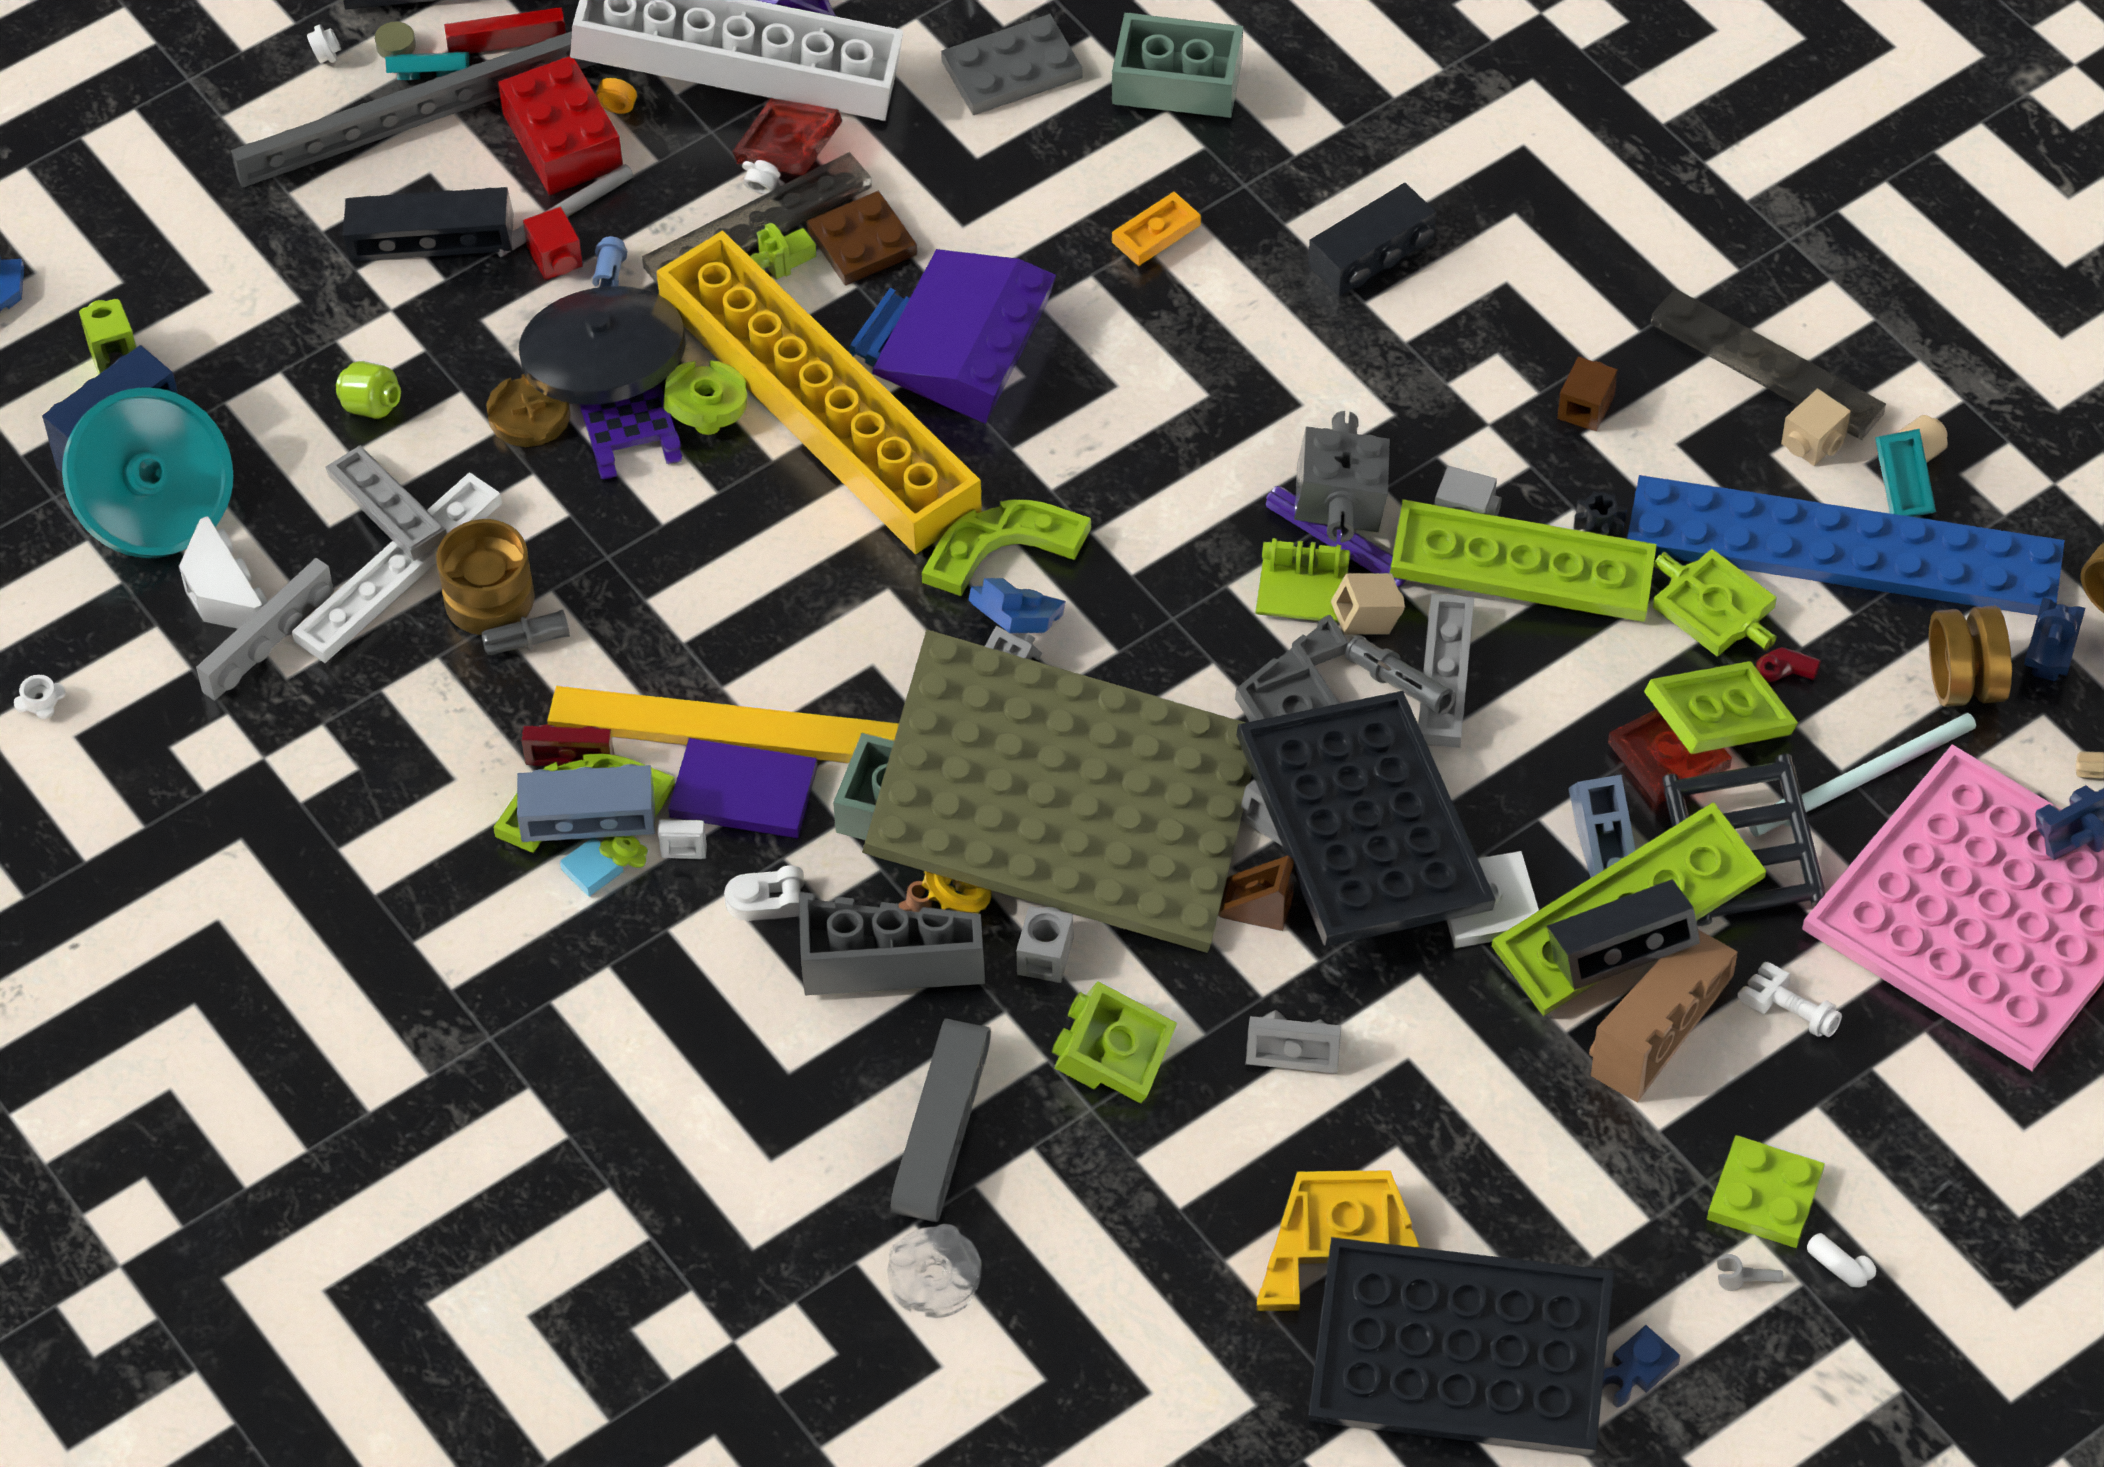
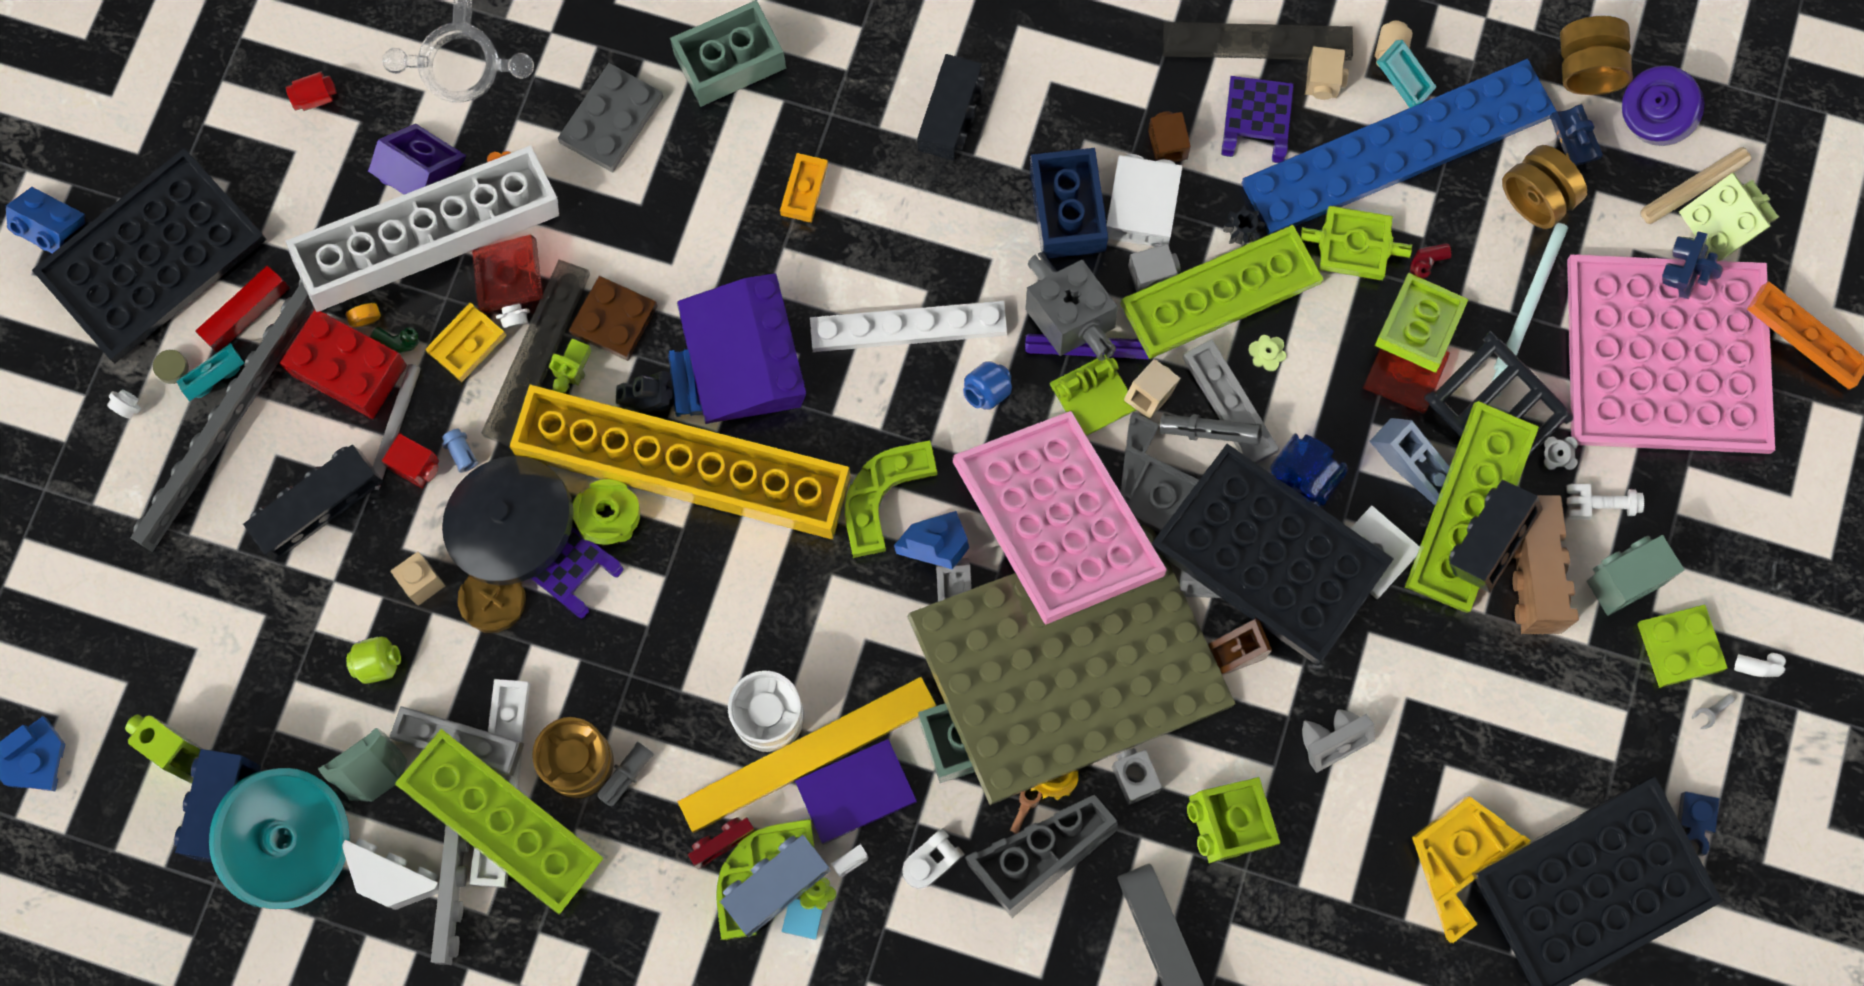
camera: 35 degrees left, 20 degrees up
(281, 469) = (366, 767): none -> sand green slope
(367, 587) = (499, 821): none -> lime plate
(471, 344) = (417, 578): none -> tan brick
(633, 143) = (401, 343): none -> dark green arm
(696, 174) = (466, 342): none -> yellow plate
(711, 648) = (766, 711): none -> white wheel
(834, 310) = (646, 393): none -> black hips
(1160, 412) = (908, 326): none -> white plate
(1162, 650) = (1058, 517): none -> bright pink plate
(1194, 505) = (987, 385): none -> blue head
(1422, 387) = (1068, 203): none -> dark blue brick
(1472, 765) = (1309, 468): none -> clear blue brick
(1509, 433) = (1143, 200): none -> white brick
(1531, 653) = (1271, 360): none -> yellowish green plant
(1710, 426) = (1258, 111): none -> dark purple flag
(1758, 1074) = (1634, 573): none -> sand green brick
(1779, 925) = (1551, 453): none -> light grey plate

